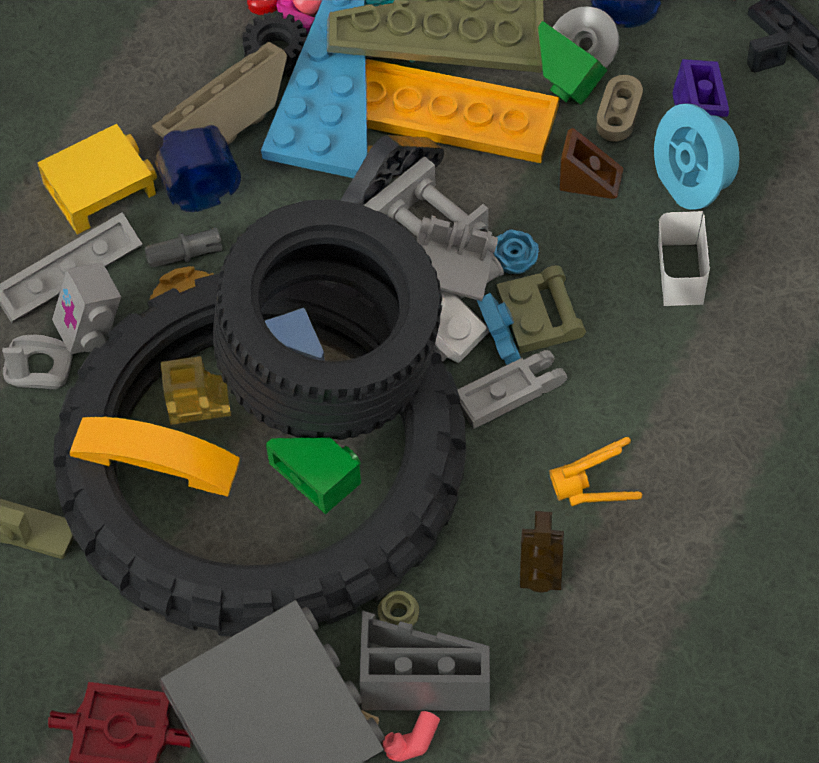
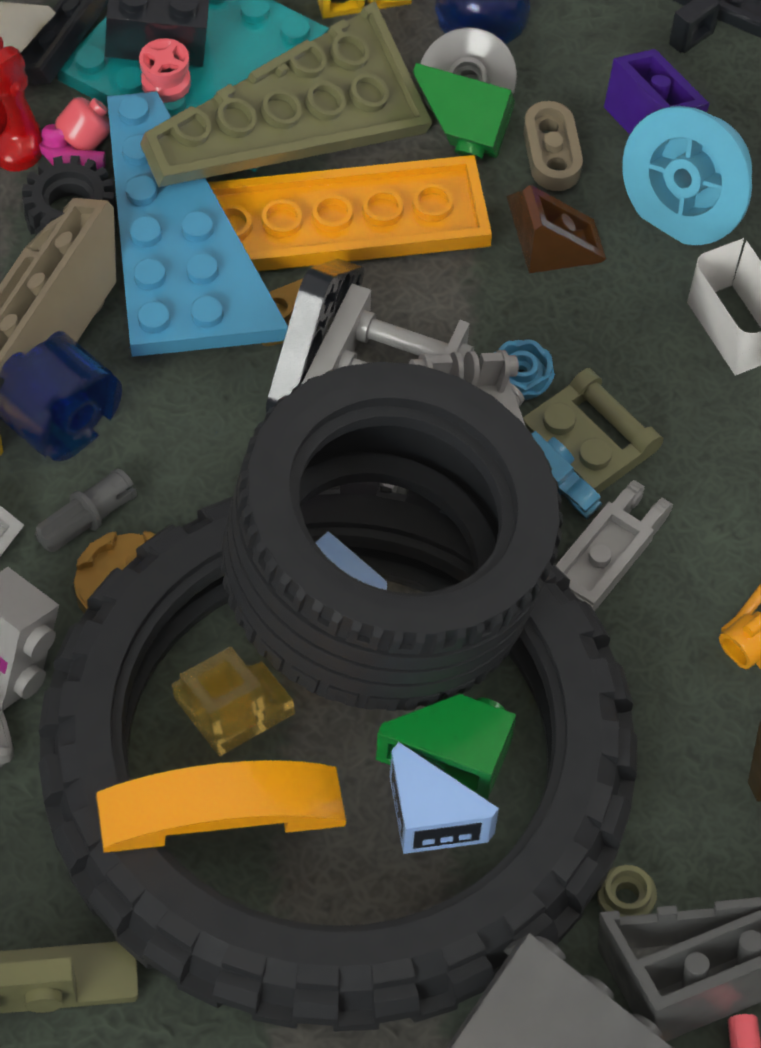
camera: 30 degrees left, 0 degrees up
(281, 505) = (436, 808): none -> light blue slope

